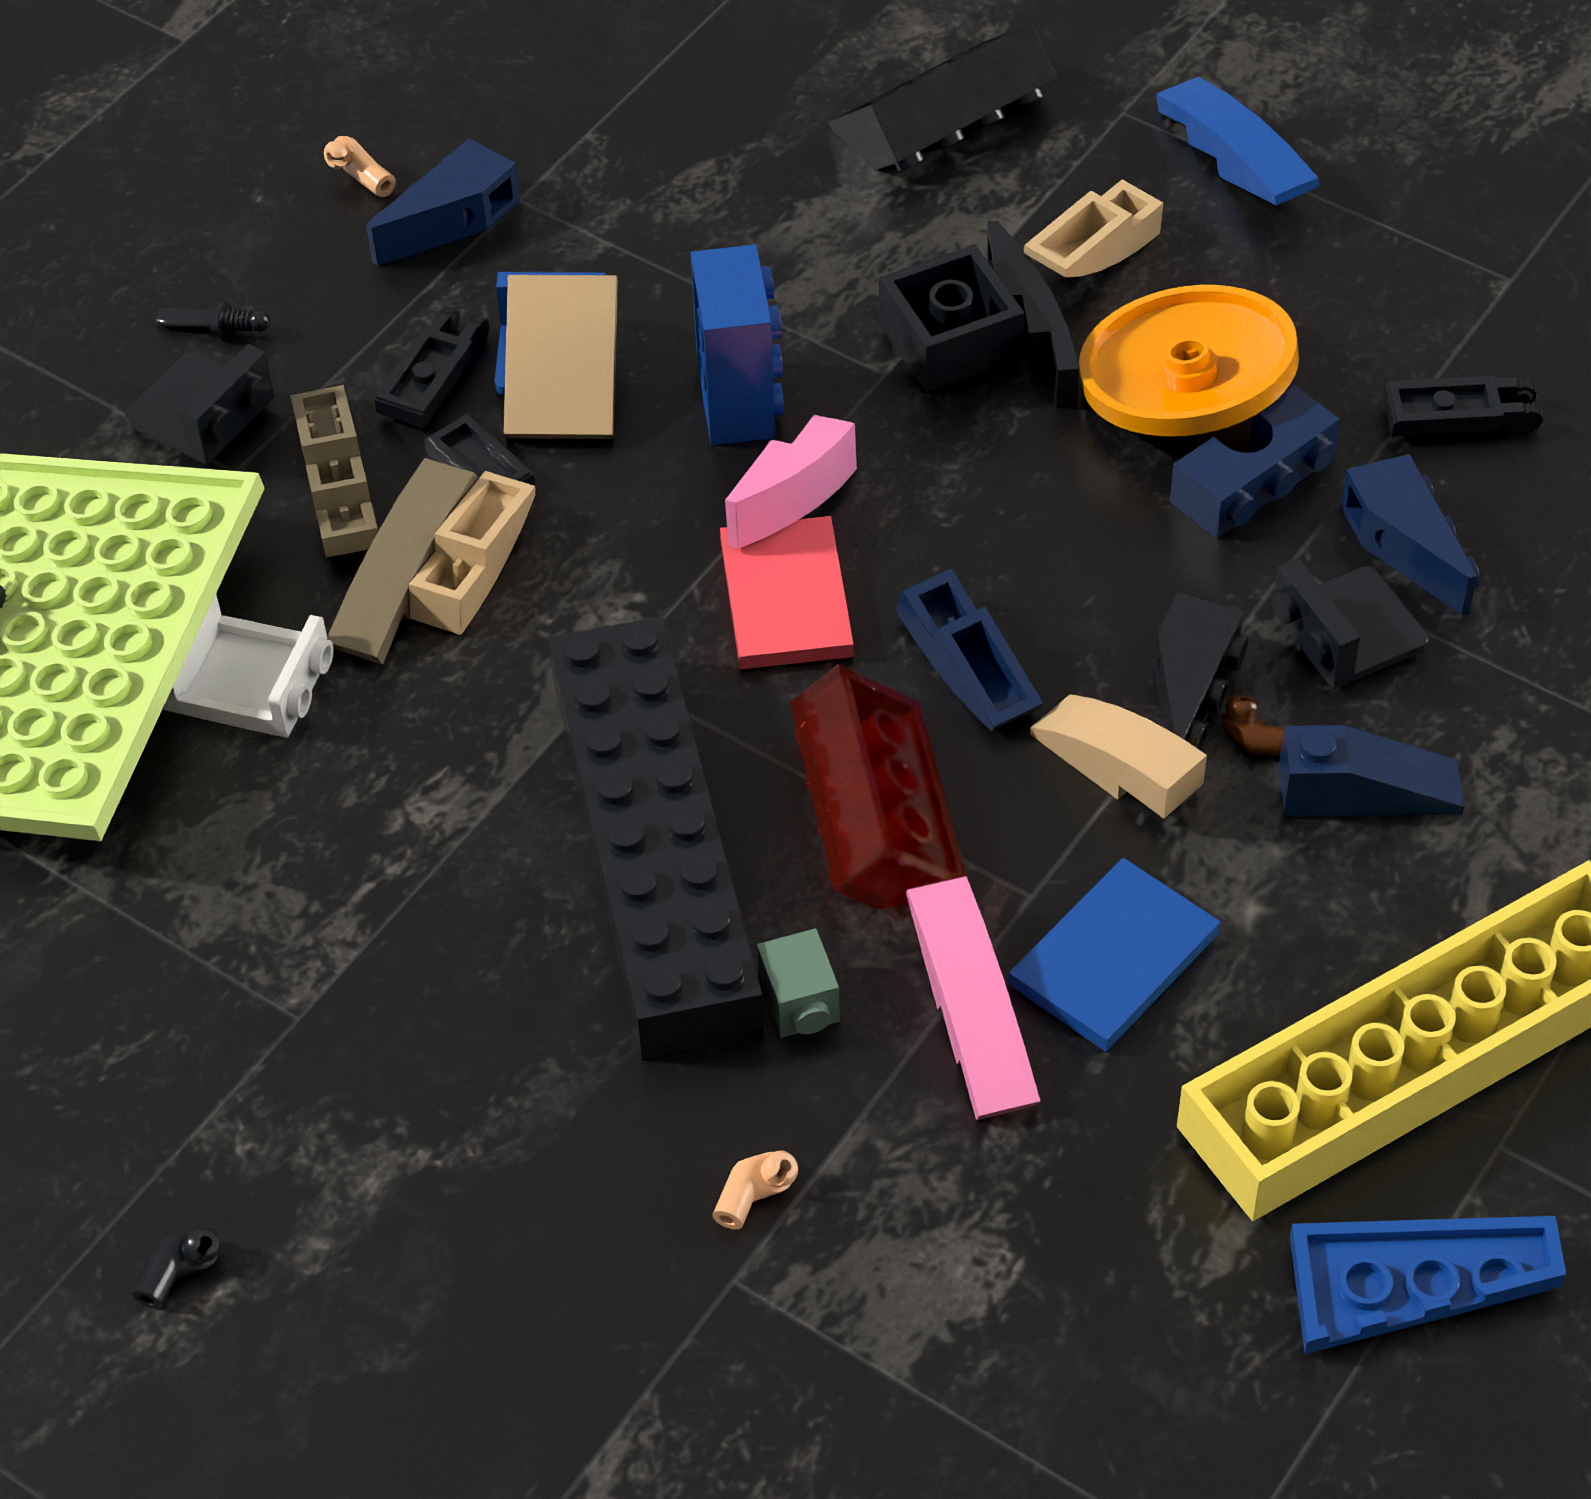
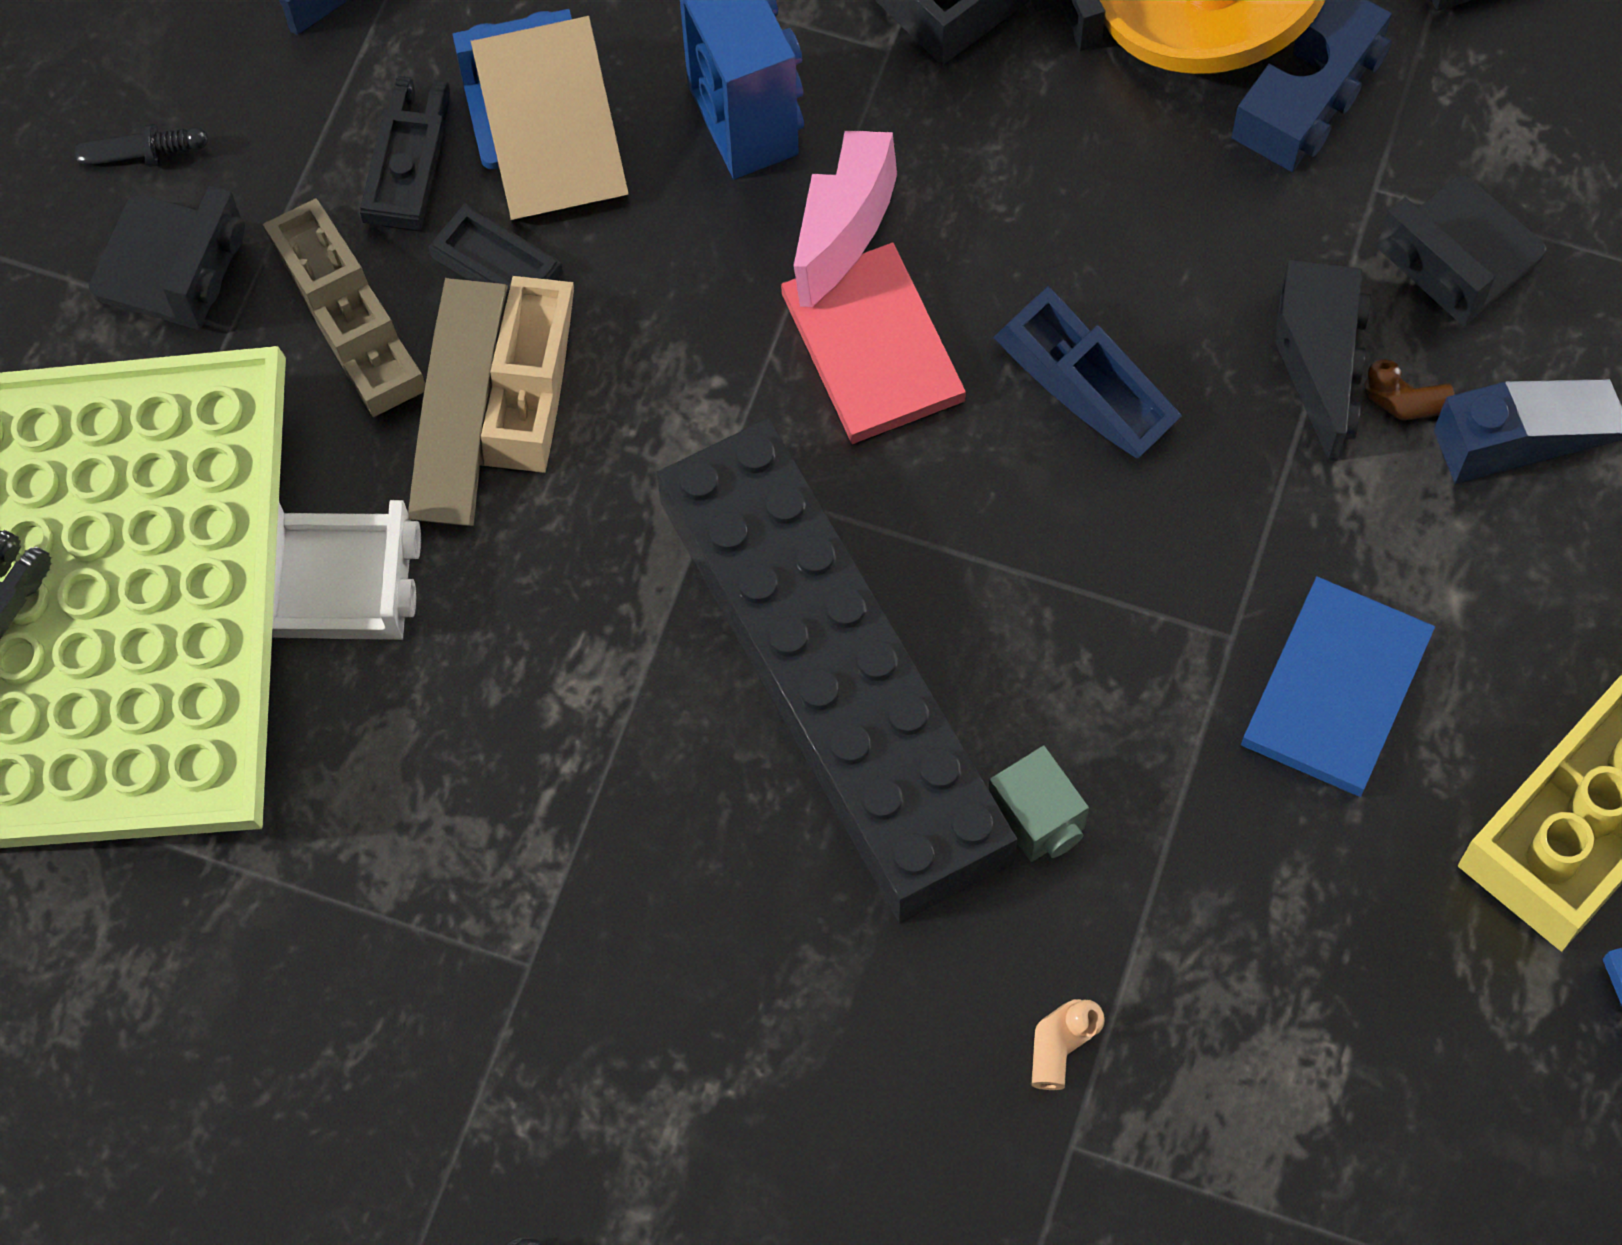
camera: 15 degrees left, 15 degrees up
(874, 789) = (1045, 563): clear red slope -> none
(972, 998) = (1218, 776): bright pink slope -> none
(1123, 752) = (1278, 453): tan slope -> none
(1403, 526) = (1485, 120): dark blue slope -> none

